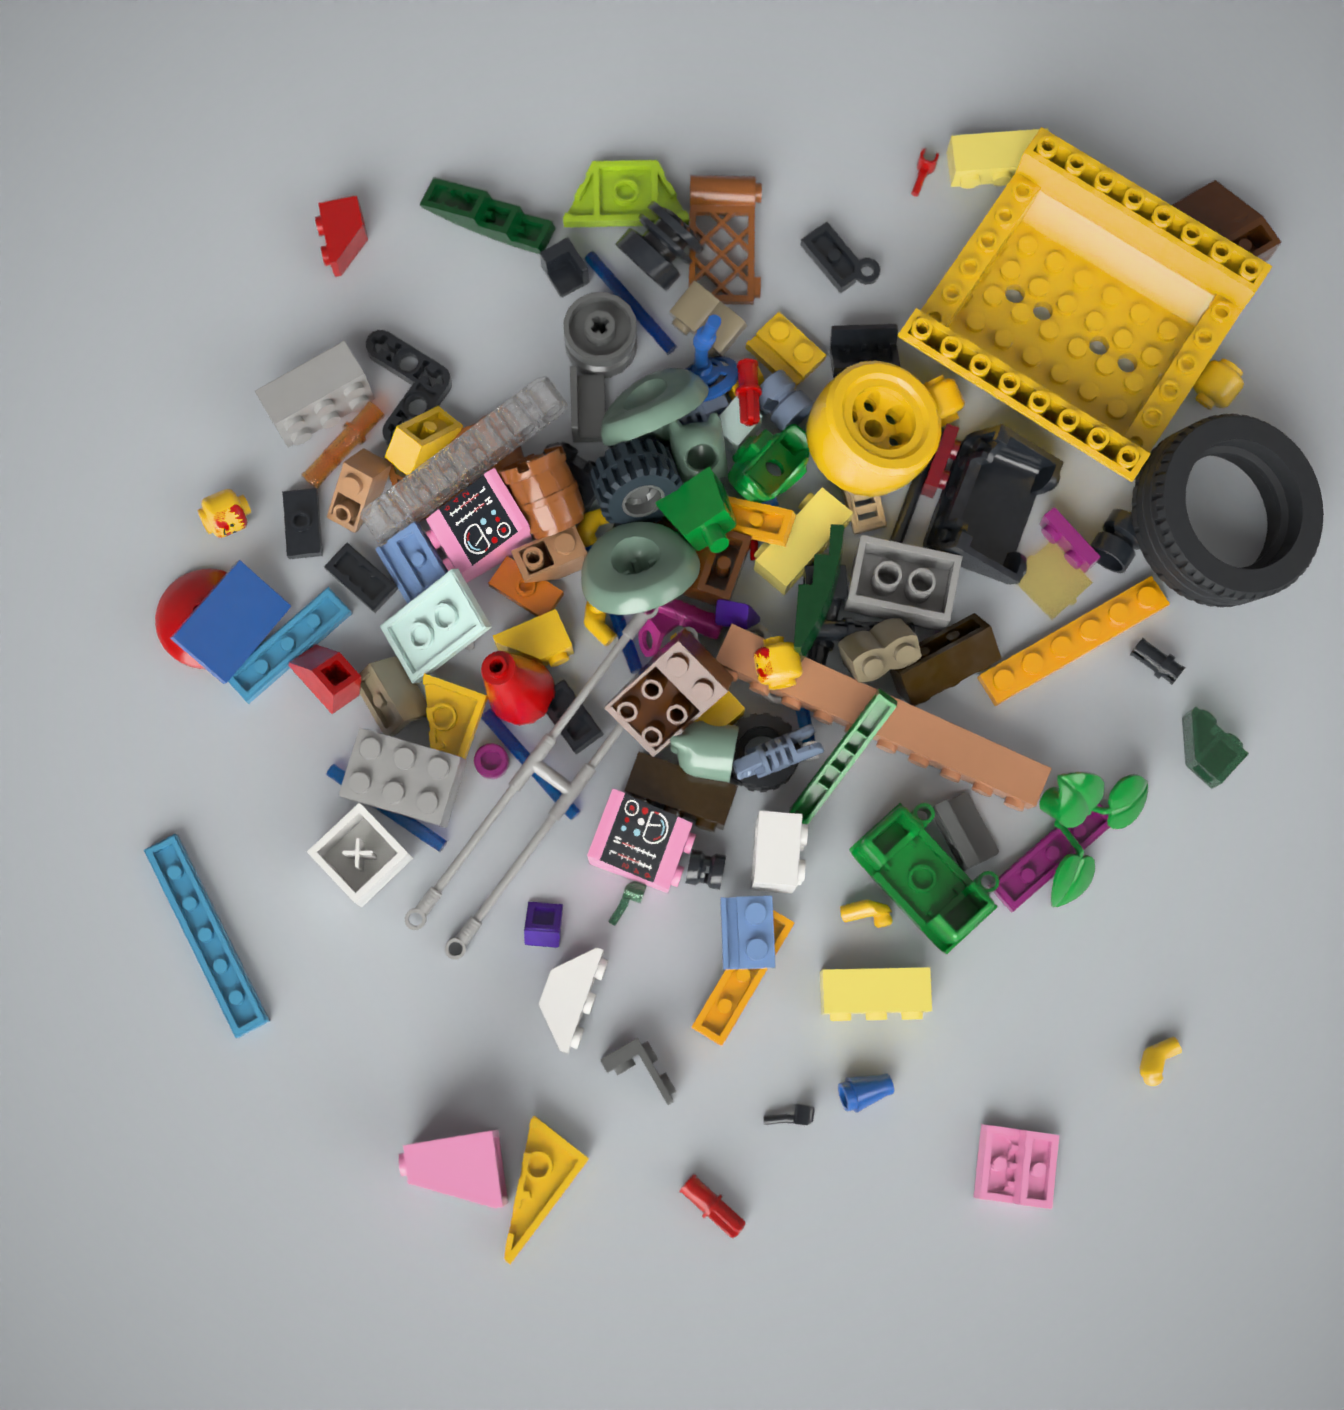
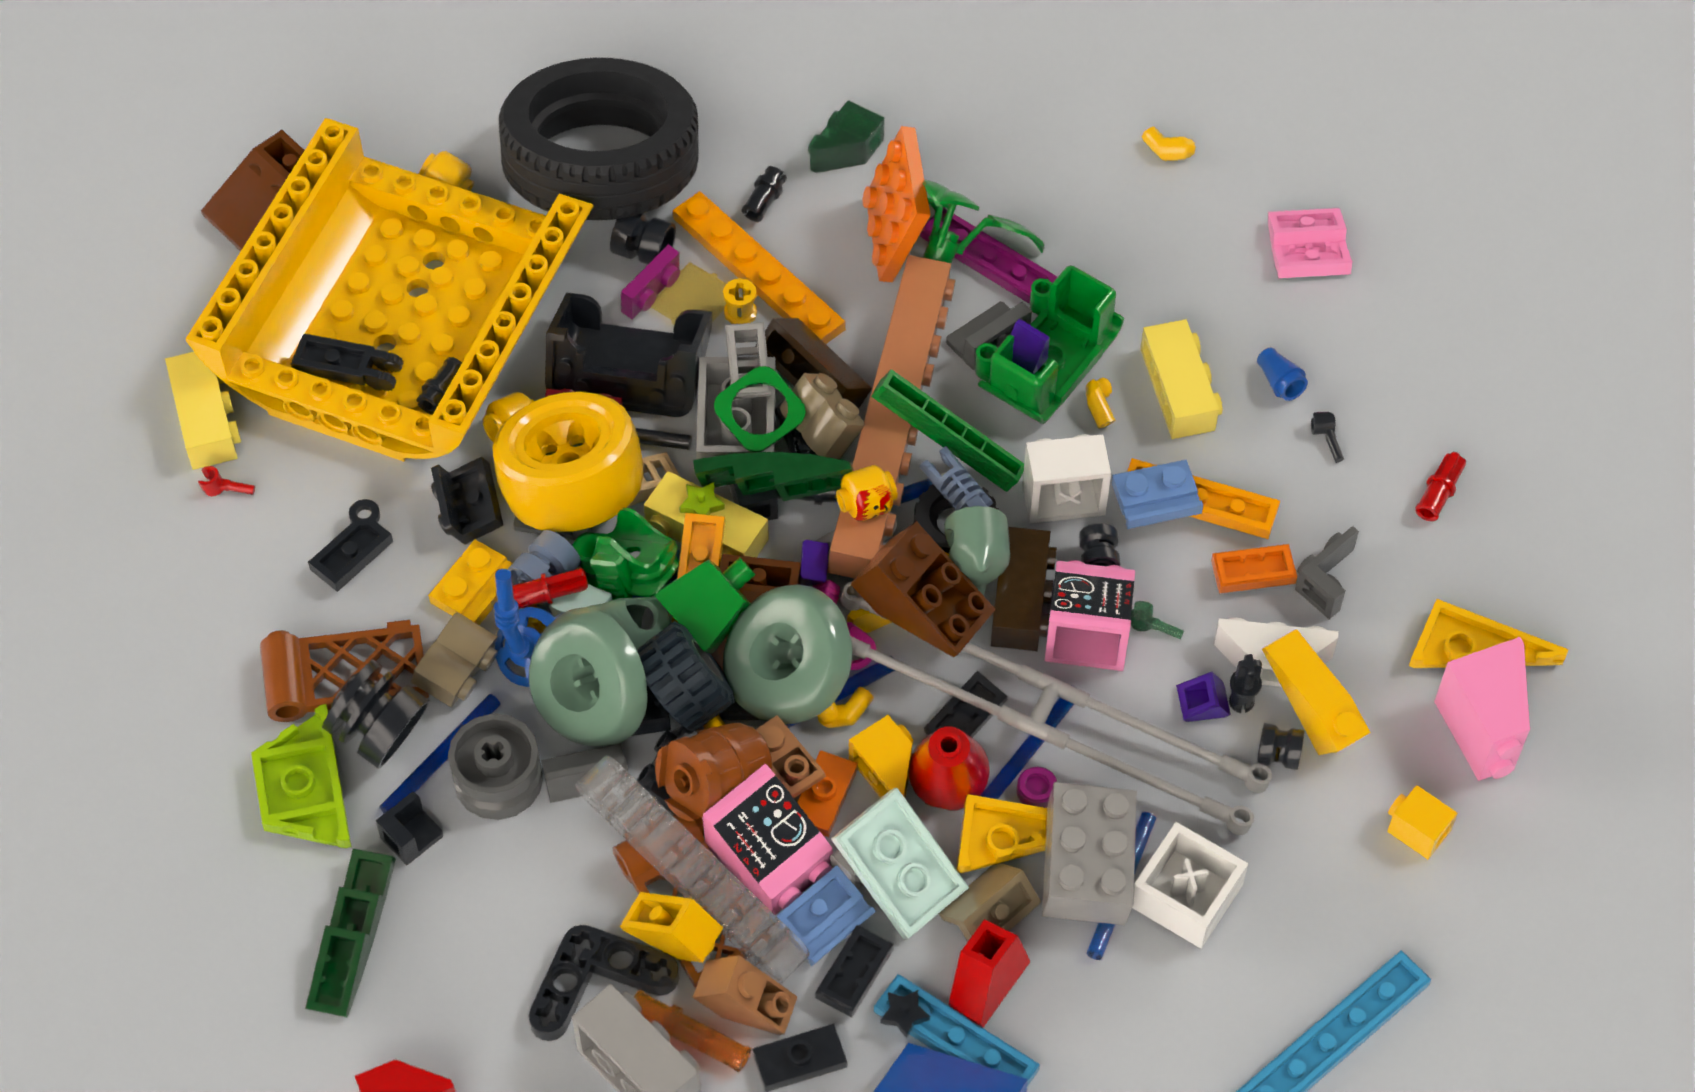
camera: 100 degrees left, 20 degrees down
(313, 606) = (904, 1012): none -> black piece
(376, 1073) = (1421, 821): none -> yellow brick
(475, 973) = (1280, 746): none -> black wheel
(507, 1012) = (1315, 694): none -> yellow slope
(534, 955) = (1245, 684): none -> black axle
(660, 1003) = (1254, 568): none -> orange plate
(812, 533) = (701, 500): none -> lime piece
(886, 624) = (759, 442): none -> green piece
(924, 851) = (1029, 346): none -> dark purple slope
(944, 580) = (741, 334): none -> light grey slope
(974, 335) = (435, 388): none -> black pin
(1018, 265) = (346, 362): none -> black hinge
(1042, 610) = (733, 301): none -> yellow bush
(1128, 767) = (896, 204): none -> orange plate

